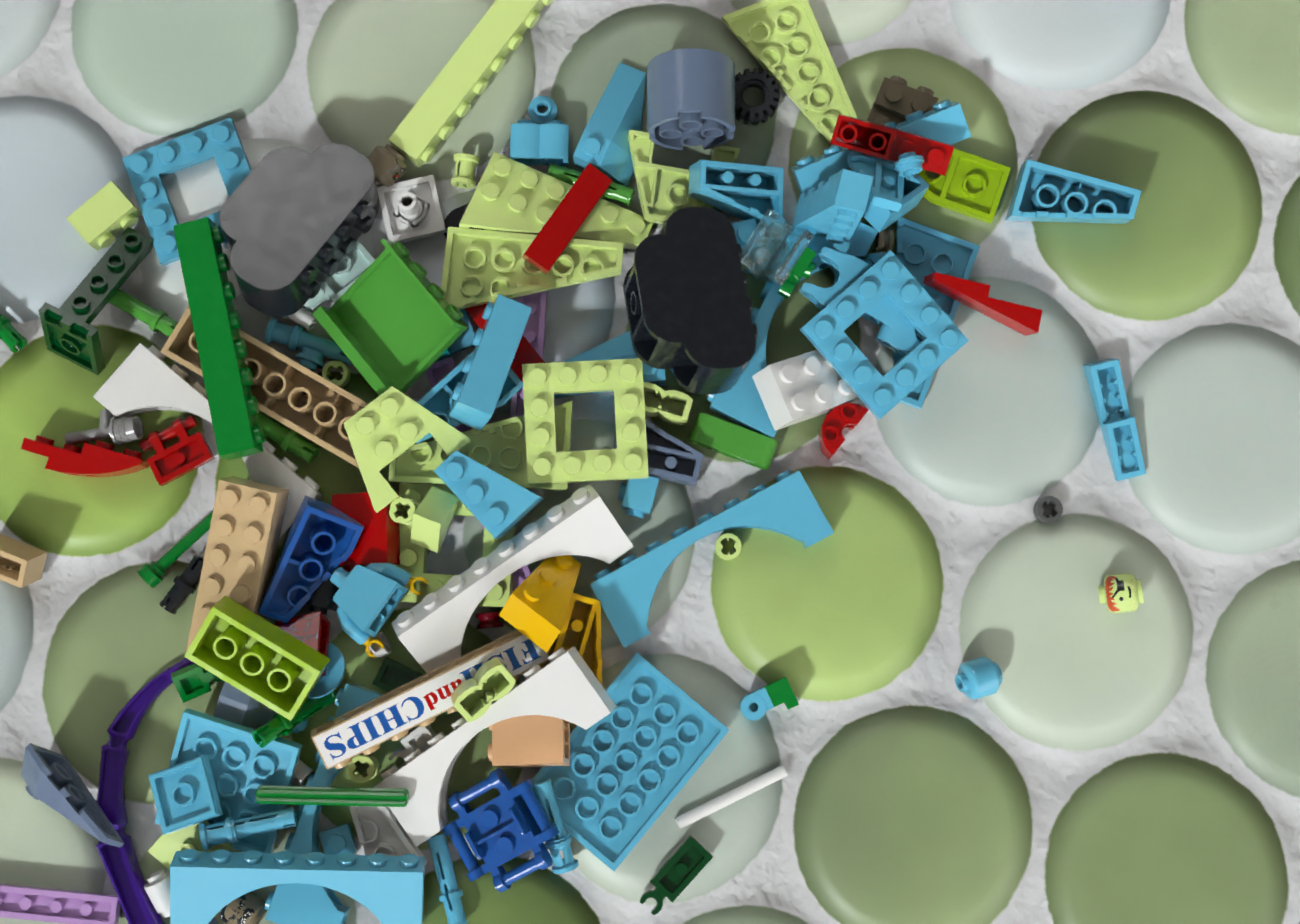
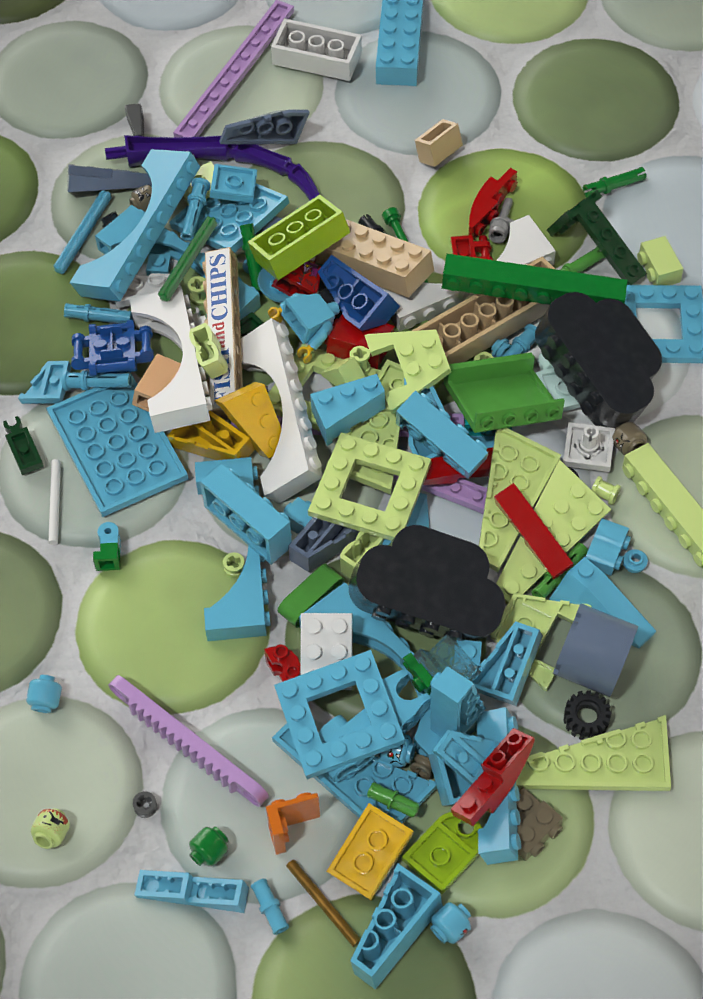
camera: 115 degrees right, 25 degrees down
(575, 890) = (47, 385): none -> medium azure wing
(684, 542) = (246, 513): none -> medium azure brick
(909, 164) = (469, 775): medium azure plate -> none
(942, 247) = (393, 800): none -> bright green axle
(962, 498) = (188, 742): none -> lavender gear
(976, 296) = (345, 806): red slope -> none
(1000, 254) = (370, 851): none -> yellow tile
(1007, 355) = (290, 812): none -> orange bracket
(1040, 145) = (450, 923): none -> medium azure head
(1068, 282) = (323, 903): none -> pearl gold bar
(1069, 418) = (208, 846): none -> green head
(1098, 331) = (269, 906): none -> medium azure pin

